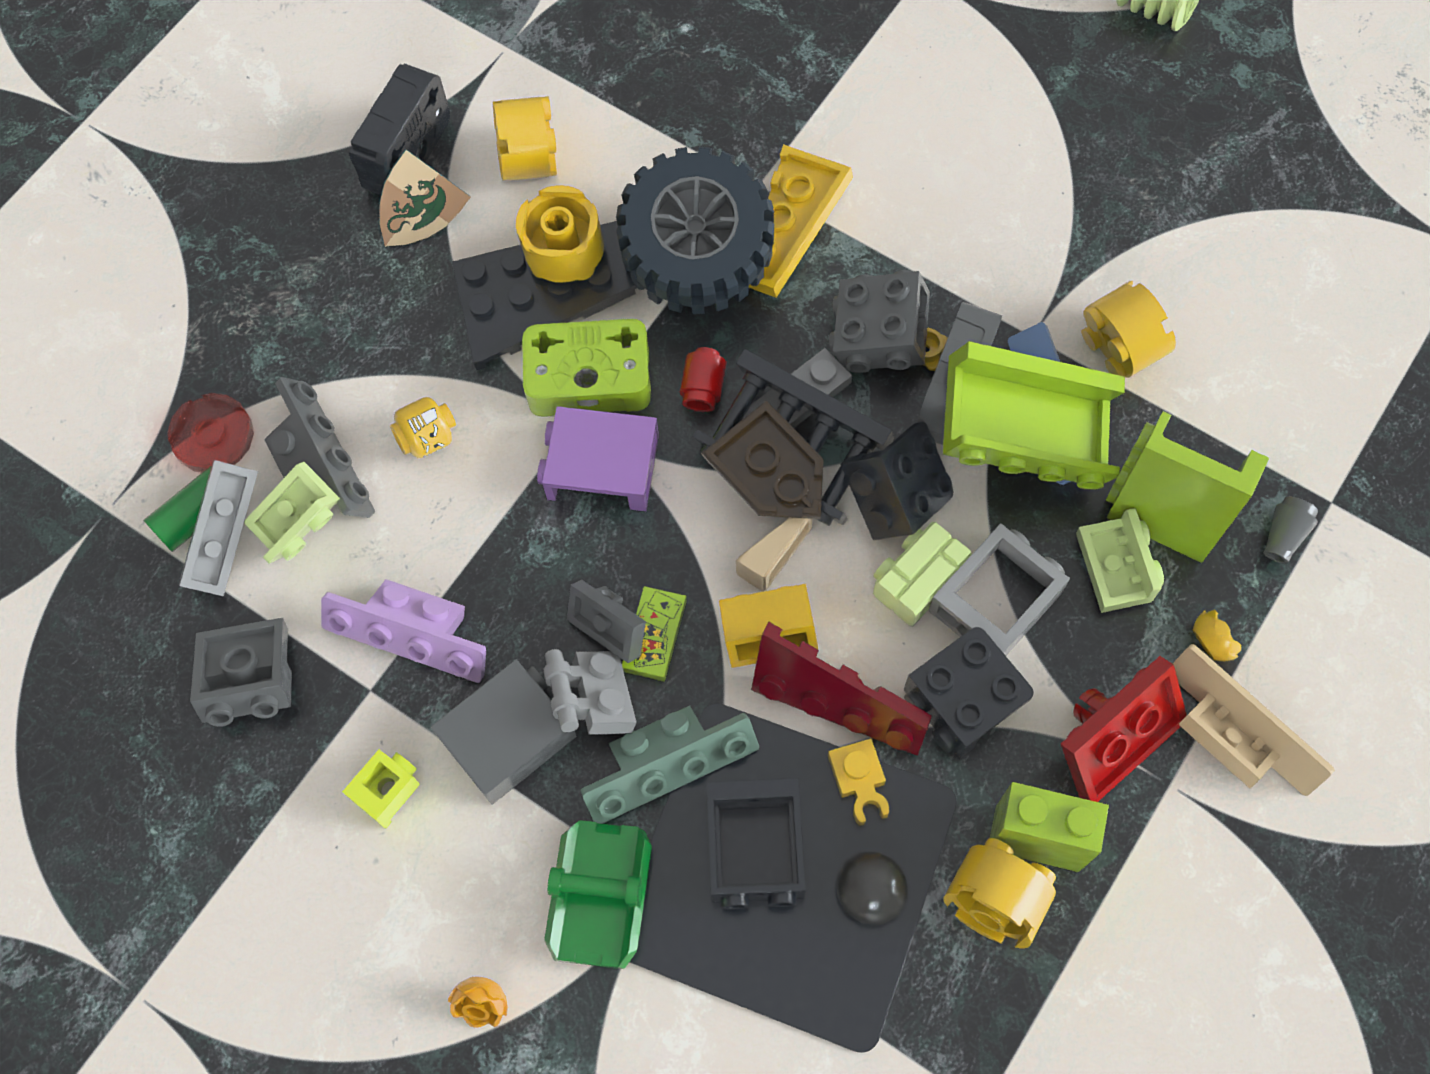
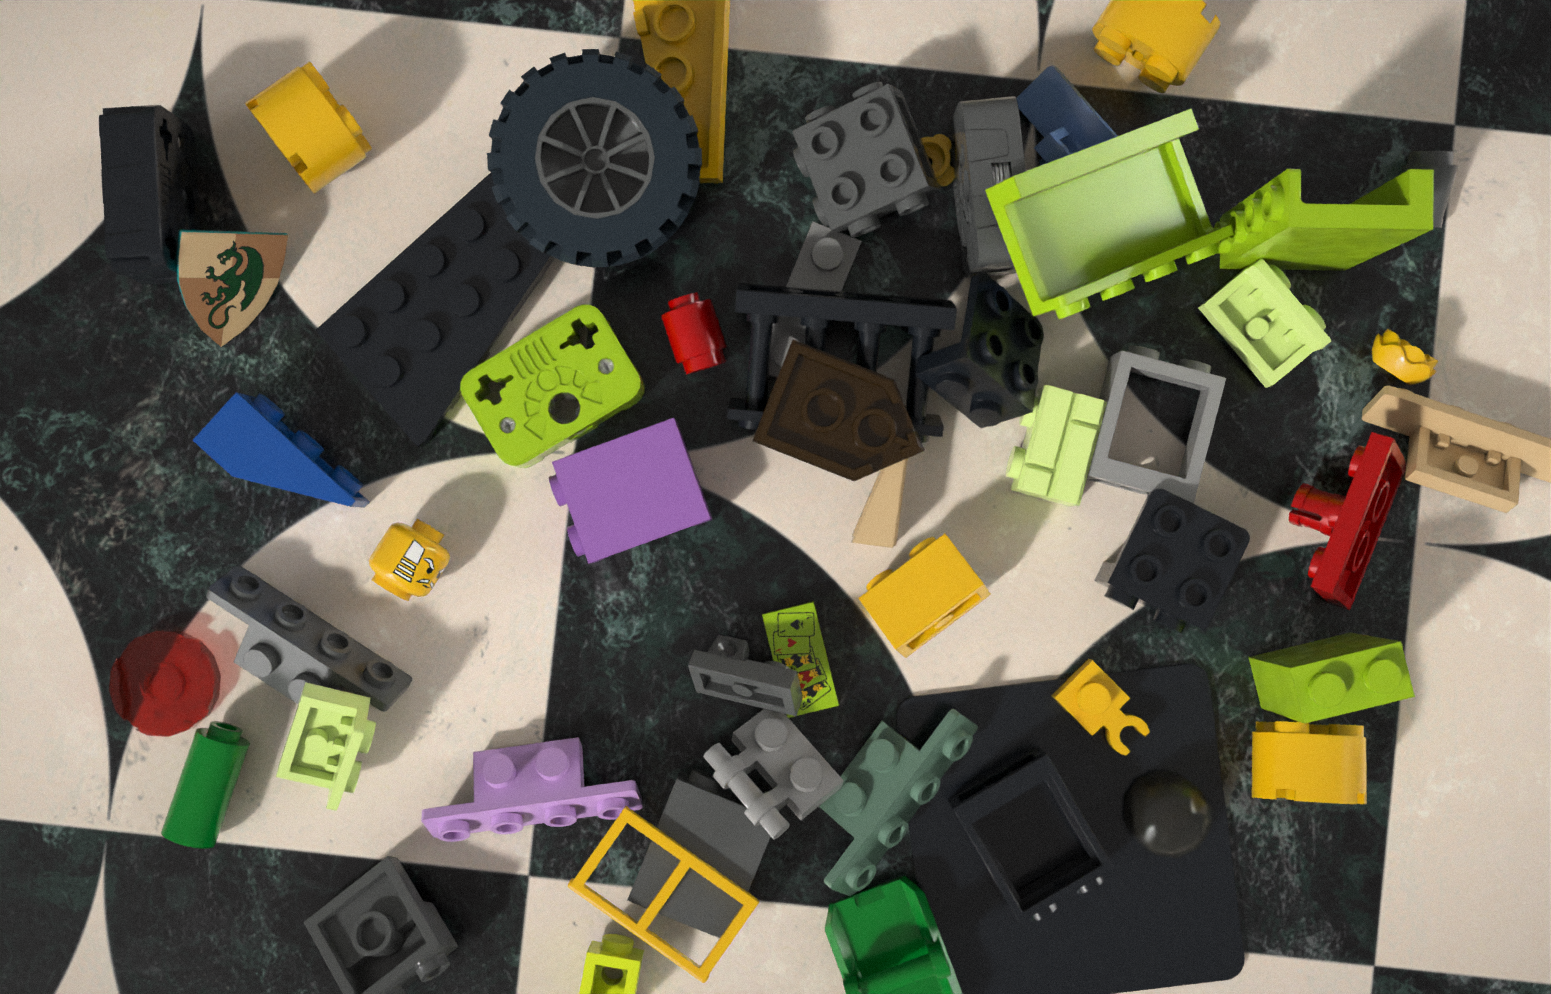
camera: 30 degrees left, 20 degrees up
(218, 528) = (253, 800): light grey plate -> none
(371, 320) = (260, 448): none -> blue slope
(428, 749) = (687, 861): none -> yellow window
(560, 234) = (407, 235): yellow brick -> none
(820, 690) = (1041, 636): dark red wing -> none

